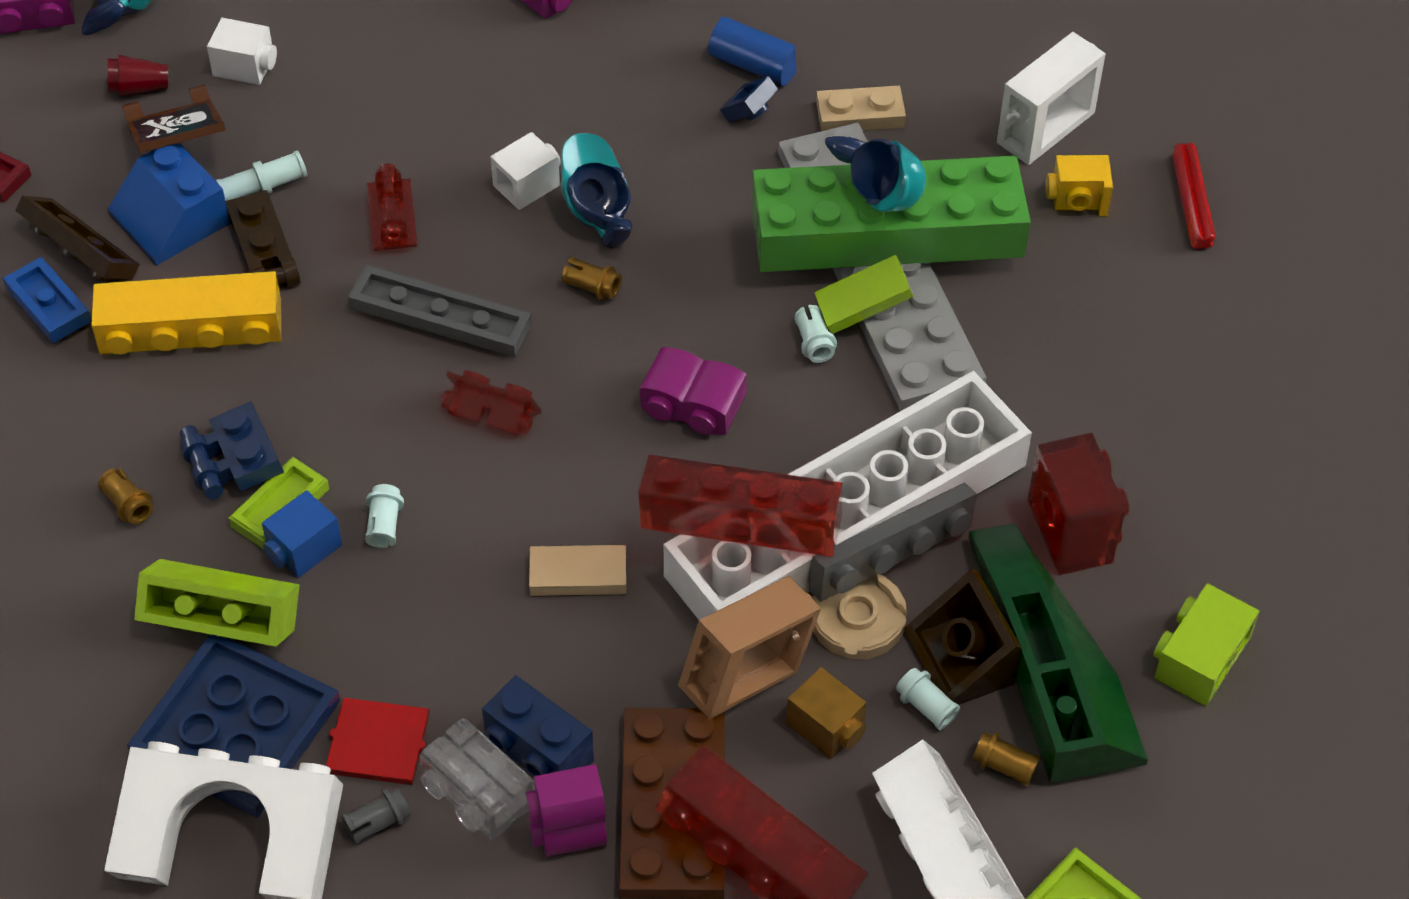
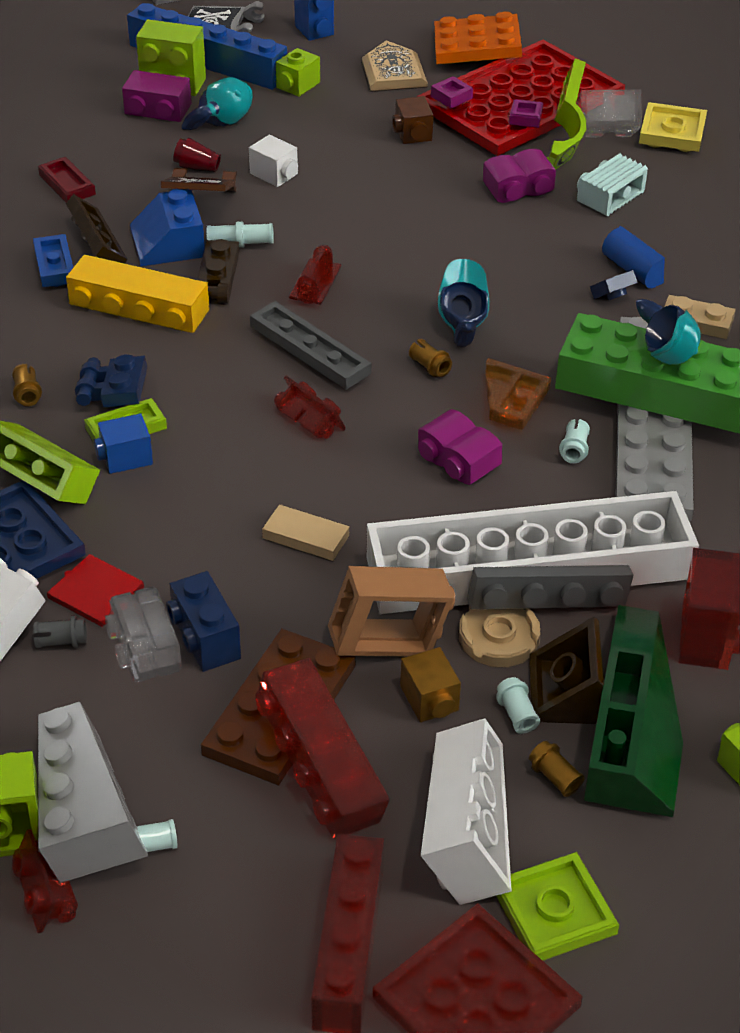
camera: 25 degrees right, 10 degrees down
(383, 513) = (193, 446): light aqua pin -> none
(525, 170) = (420, 279): white brick -> none
(567, 811) = (189, 672): magenta brick -> none
(711, 293) = (513, 393): none -> clear orange wing
(740, 505) = (435, 511): clear red brick -> none
(863, 294) = (624, 423): lime tile -> none

